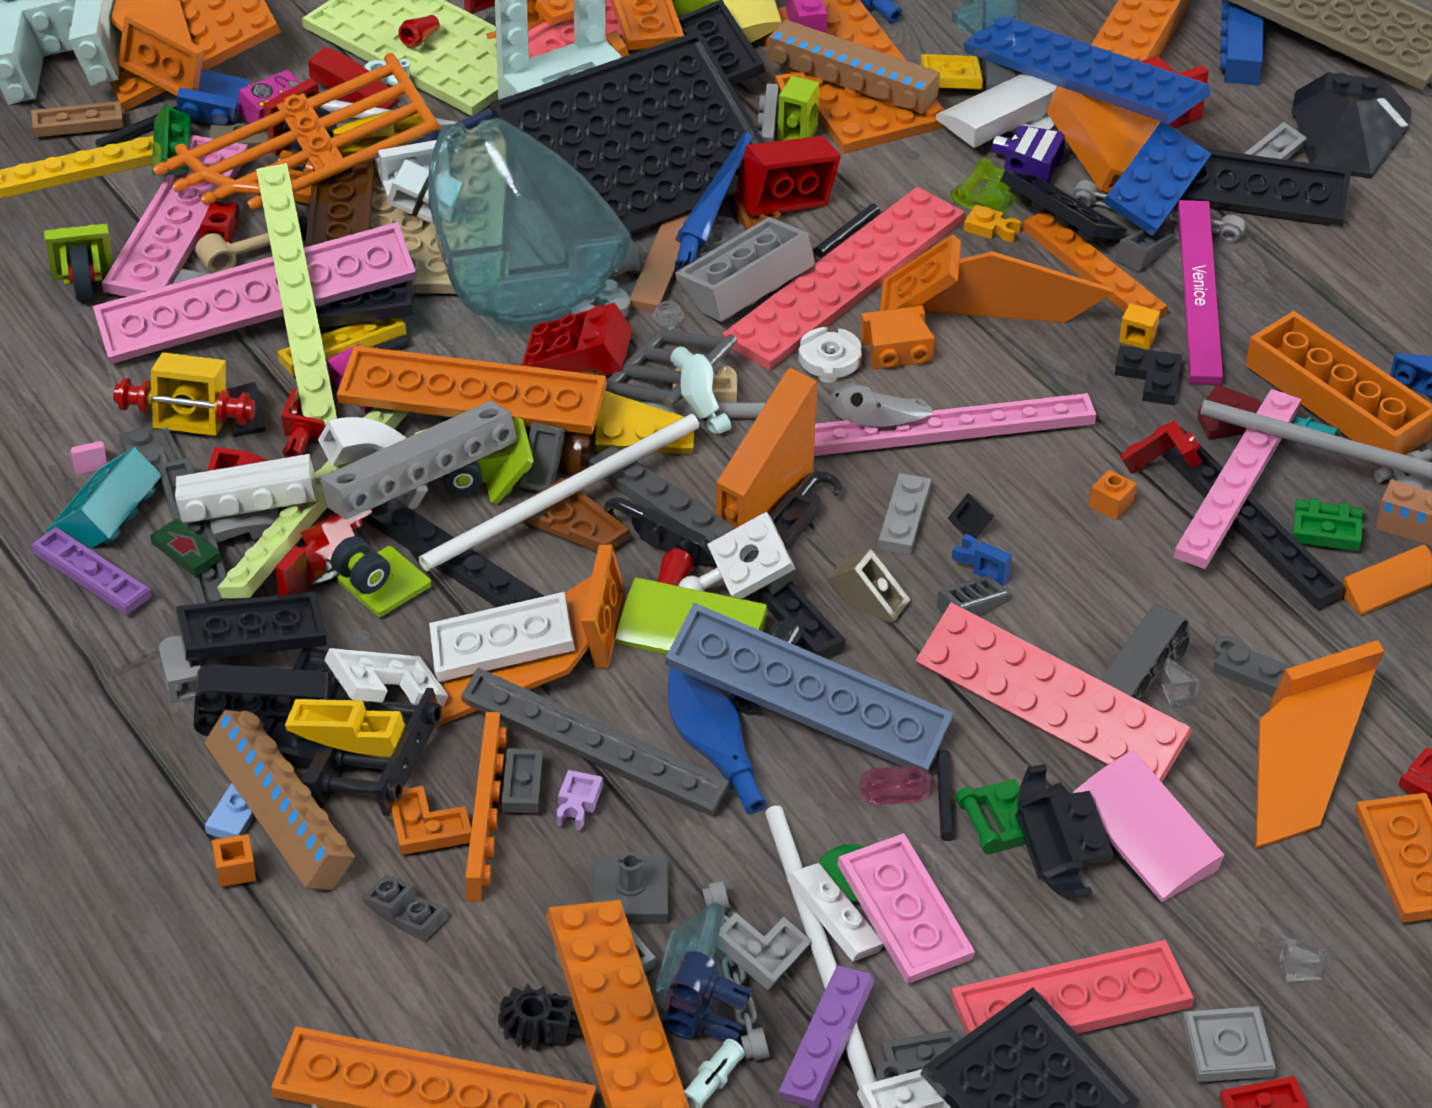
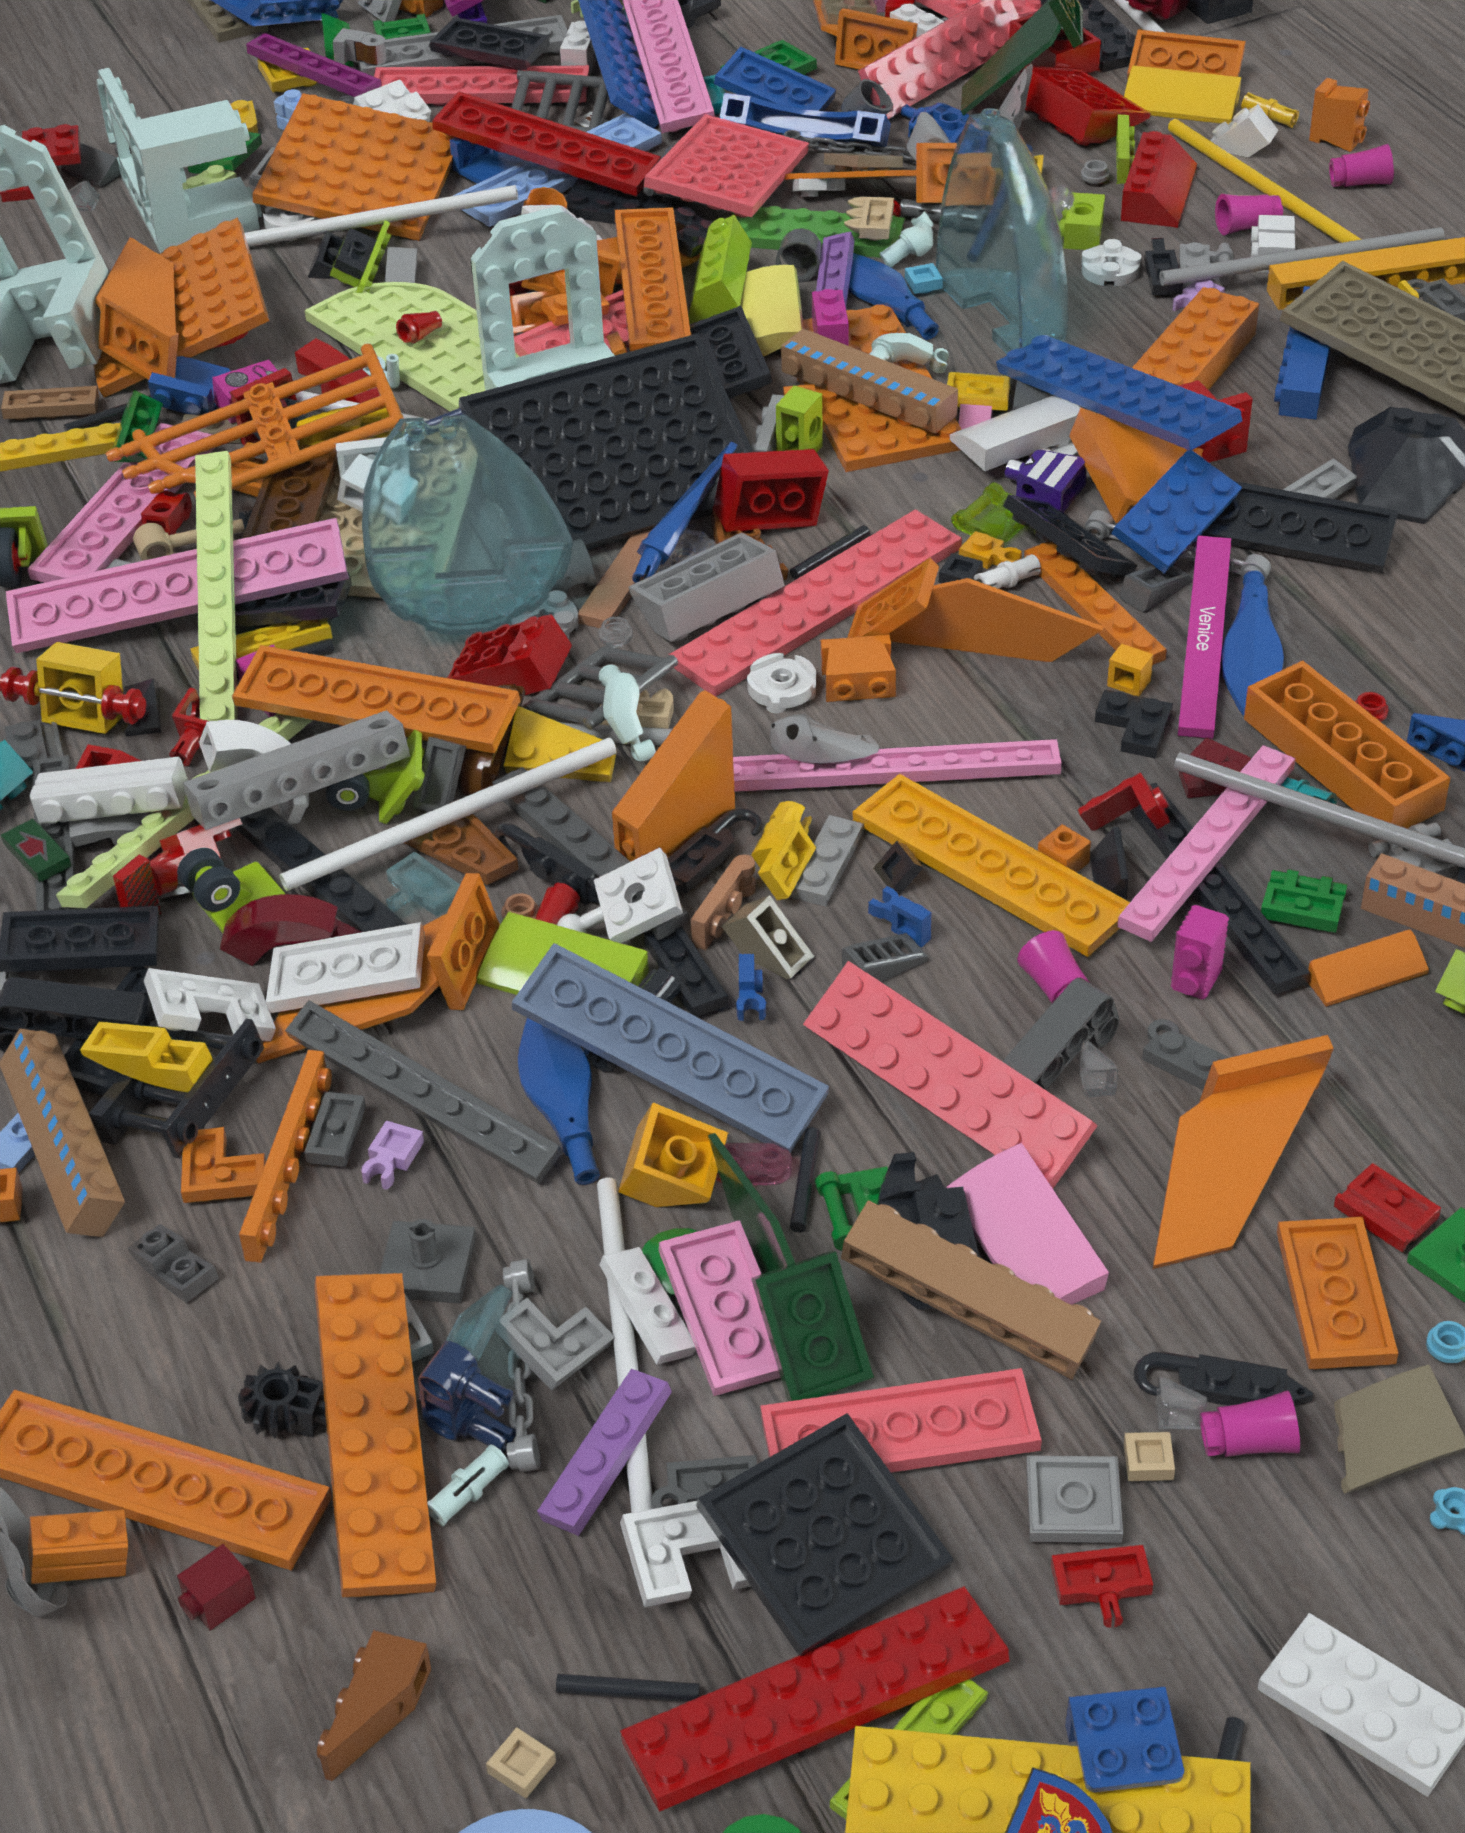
camera: 10 degrees right, 0 degrees up
(430, 599) = (278, 922): none -> dark red arch
(547, 557) = (422, 884): none -> clear light blue plate
(640, 569) = (520, 904): none -> nougat plate
(823, 555) = (723, 901): none -> nougat plate
(829, 785) = (670, 1160): none -> light orange slope
(861, 629) = (749, 985): none -> blue plate
(867, 505) = (784, 849): none -> yellow plate
(884, 33) = (909, 347): none -> light aqua arm
(952, 95) = (974, 414): none -> bright pink slope
(972, 241) = (958, 568): none -> black plate
(974, 896) = (800, 1302): none -> dark green piece
(1014, 242) = (1009, 573): none -> white pin
(1052, 508) = (993, 863): none -> light orange plate
(1113, 876) = (970, 1288): none -> medium nougat brick
(1123, 596) = (1049, 963): none -> dark pink plant
(1156, 507) = (1109, 864): none -> black slope
(1240, 297) = (1252, 643): none -> blue animal
(1250, 575) = (1199, 952): none -> dark pink brick
(1284, 1004) = (1149, 1456): none -> tan plate
(1338, 937) = (1221, 1379): none -> black plate
(1358, 345) = (1374, 704): none -> red plate
(1366, 973) = (1252, 1427): none -> dark pink plant

